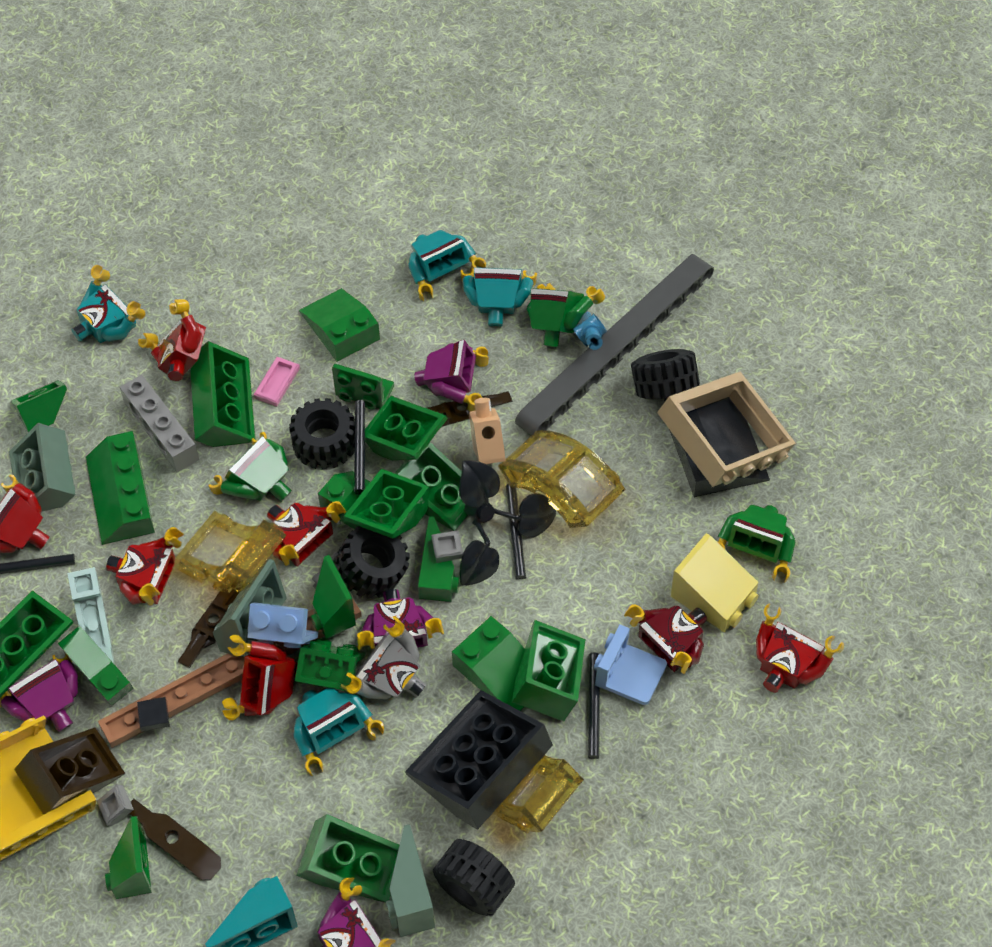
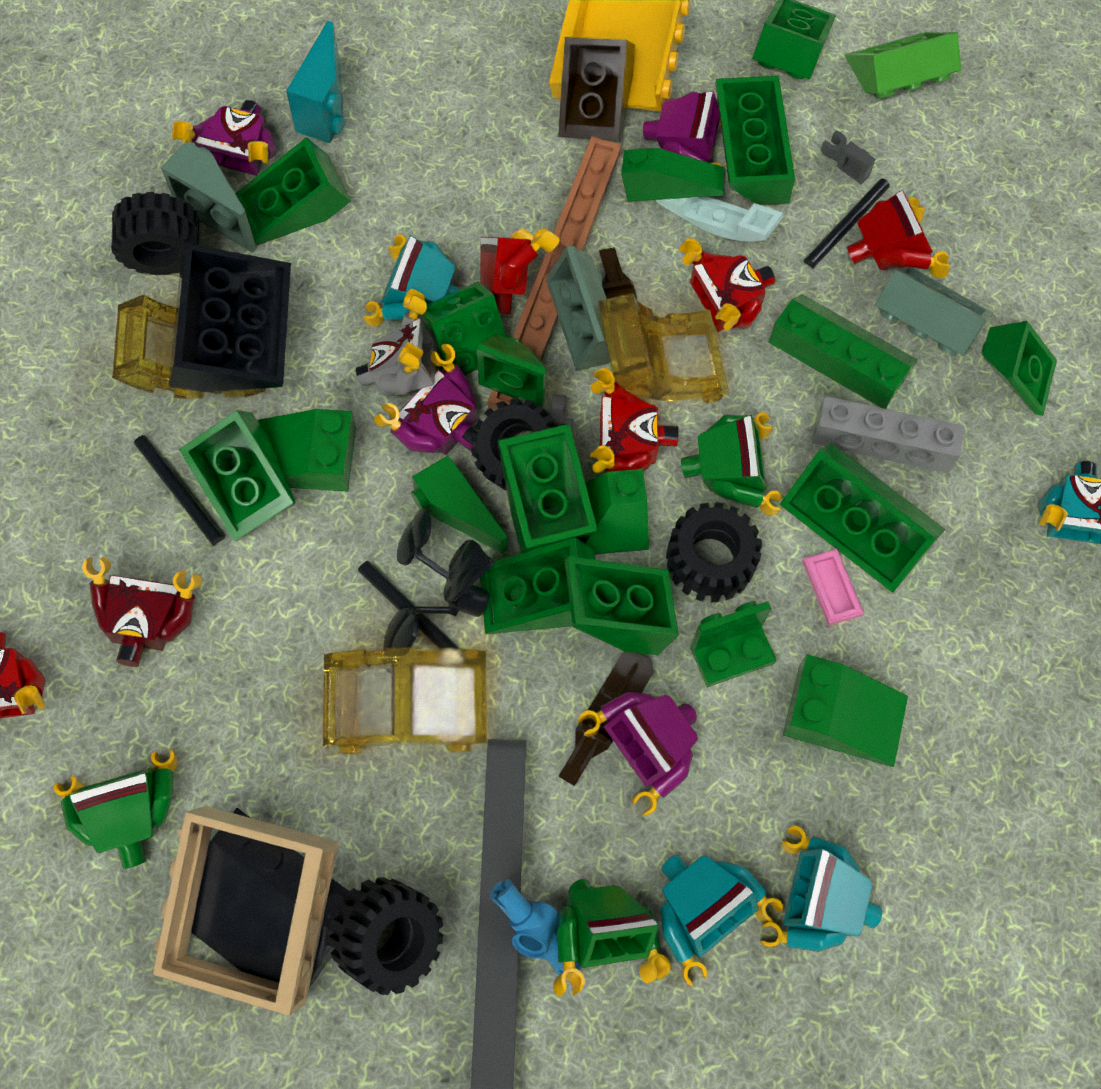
camera: 135 degrees right, 10 degrees up
(115, 805) = (535, 102): light grey tile -> none
(129, 864) = (466, 65): green slope -> none
(153, 714) = (577, 176): black tile -> none
(181, 345) = (960, 516): red torso -> none
(186, 850) = (446, 115): dark brown piece -> none
(279, 624) = (527, 299): light blue bracket -> none
(359, 450) = (651, 549): black bar -> none
(447, 546) = (454, 513): light grey tile -> none
(486, 433) = (535, 681): light nougat torso -> none
(628, 669) = (162, 541): light blue bracket -> none
(714, 583) = (130, 699): light yellow slope -> none

